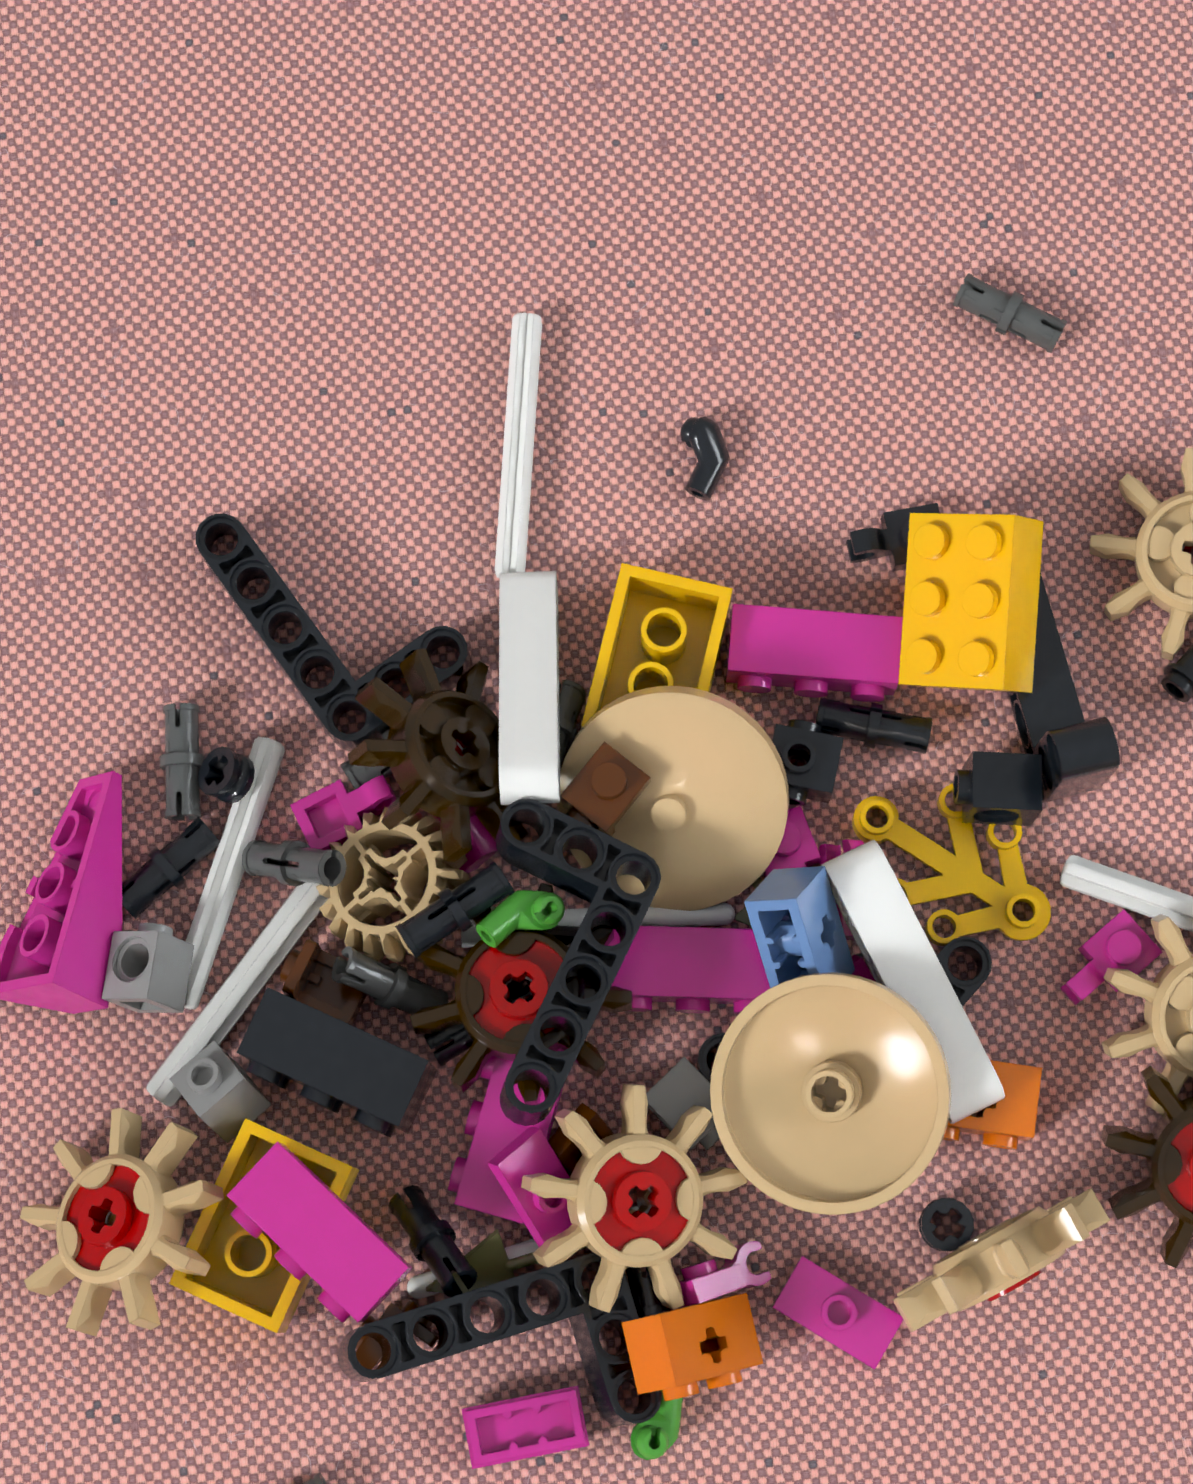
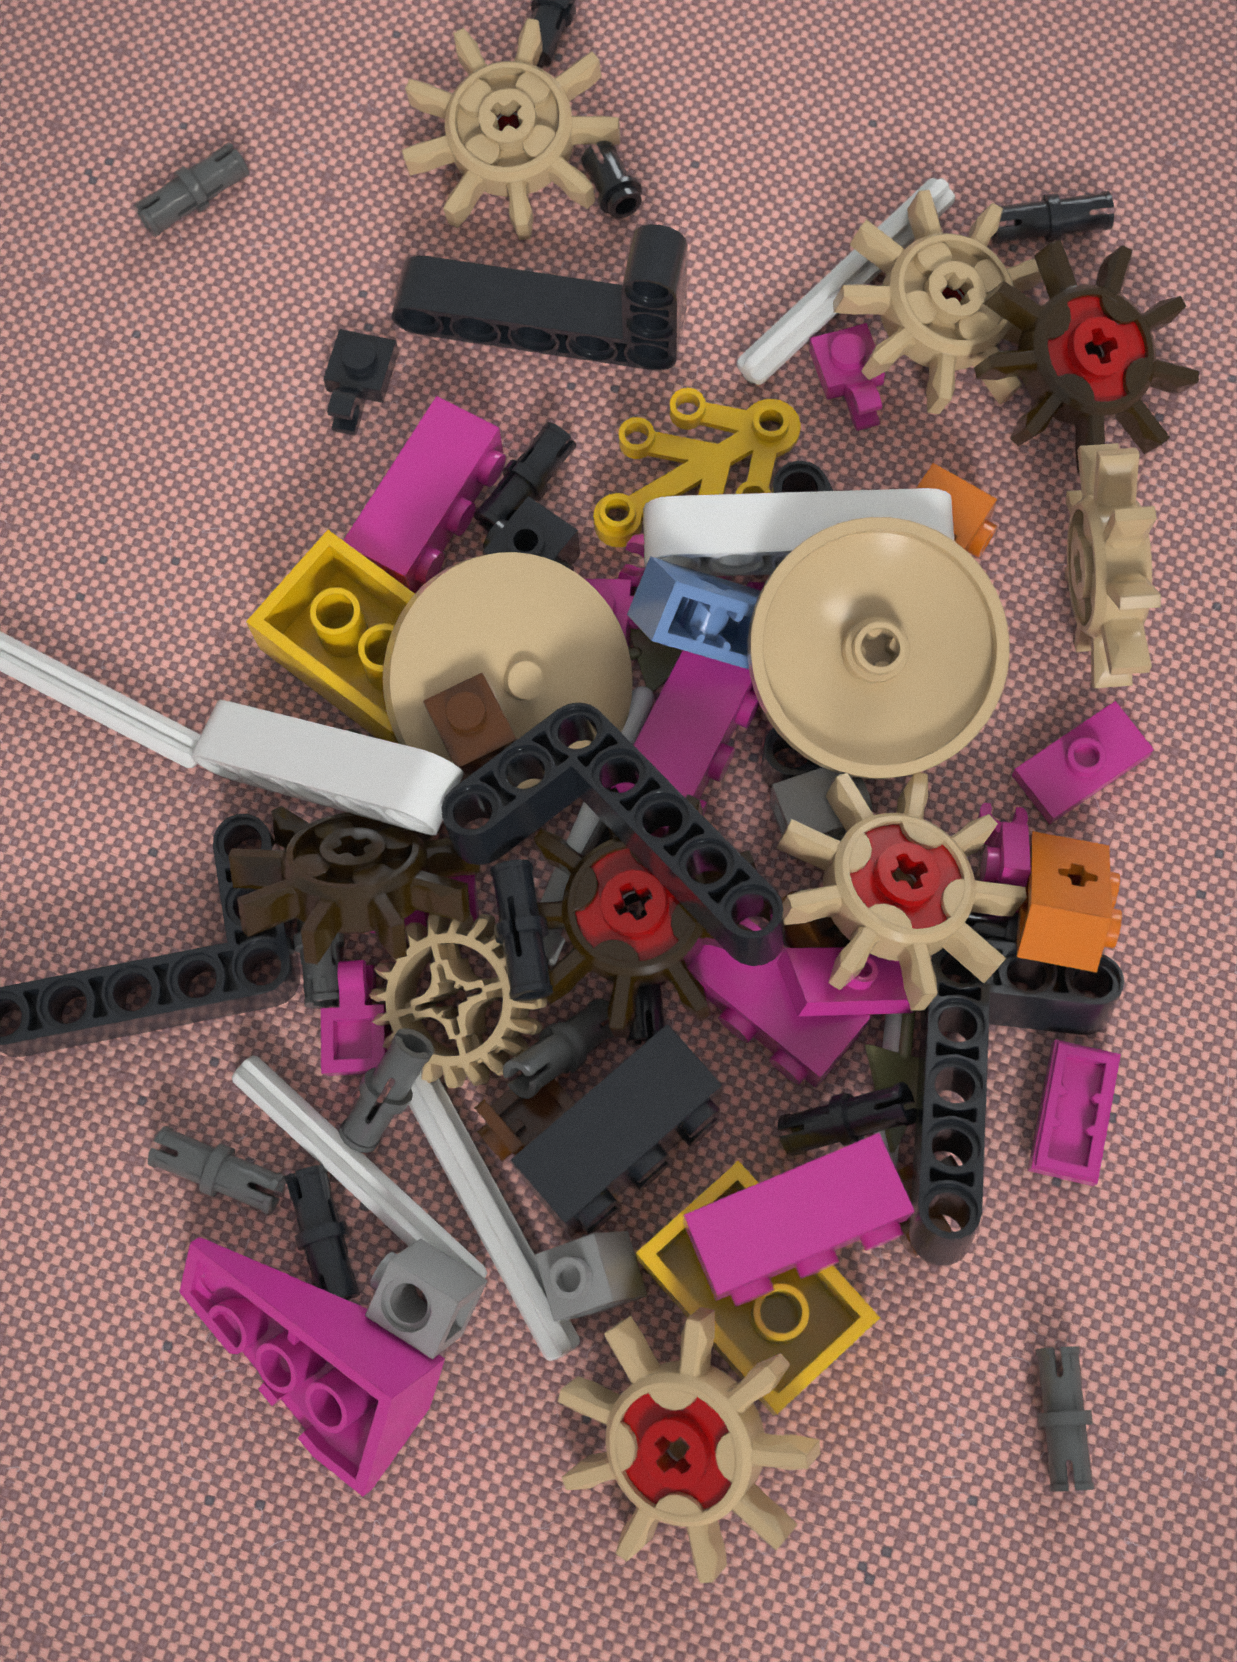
camera: 65 degrees left, 5 degrees down
(226, 775) = (251, 1141): black bush -> none
(522, 912) = (556, 864): bright green arm -> none
(659, 1433) = (1141, 986): bright green arm -> none
(711, 452) = (178, 509): black arm -> none
(943, 1206) = (1043, 607): black bush -> none
(971, 601) = (454, 323): yellow brick -> none
(999, 788) = (648, 380): black brick -> none

